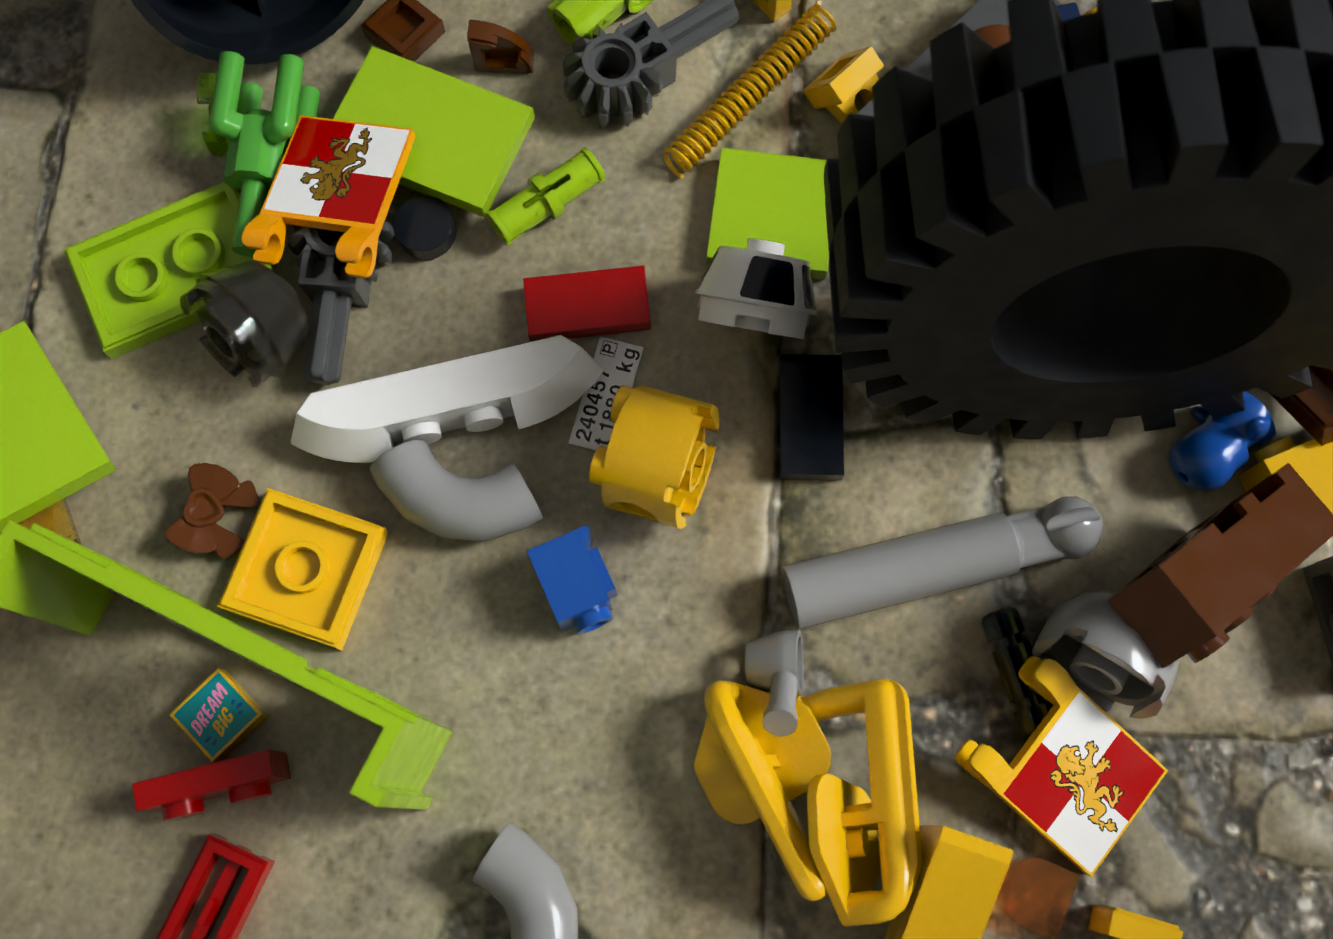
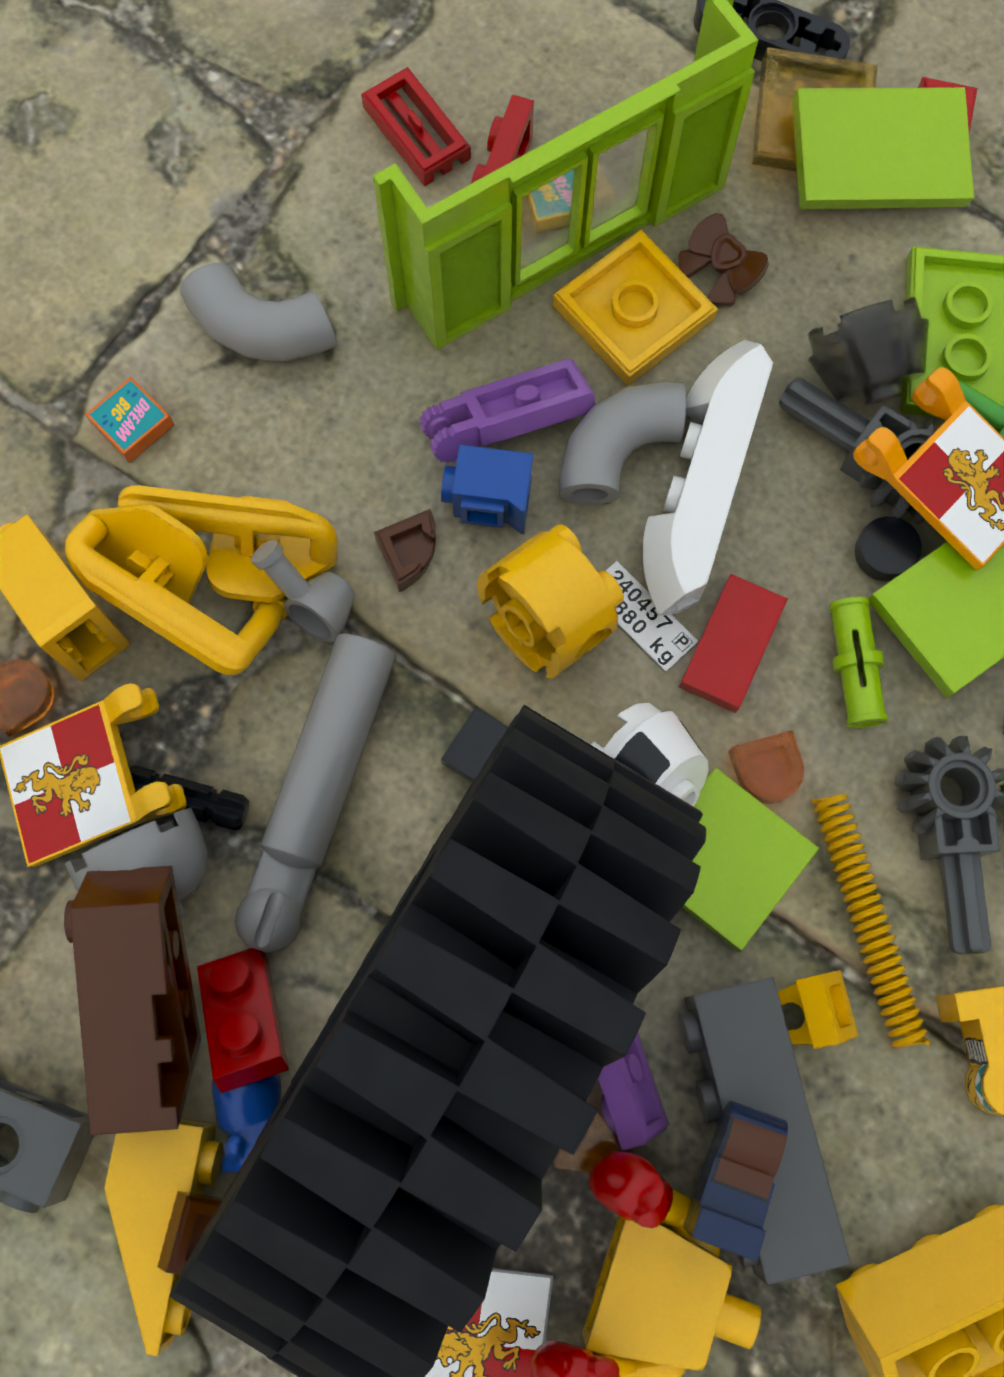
camera: 120 degrees right, 0 degrees up
(483, 612) = (507, 408): none -> medium lavender hinge
(670, 627) = (408, 547): none -> reddish brown tile
(675, 221) = (769, 767): none -> clear orange tile
(1161, 492) = (241, 1019): none -> red plate

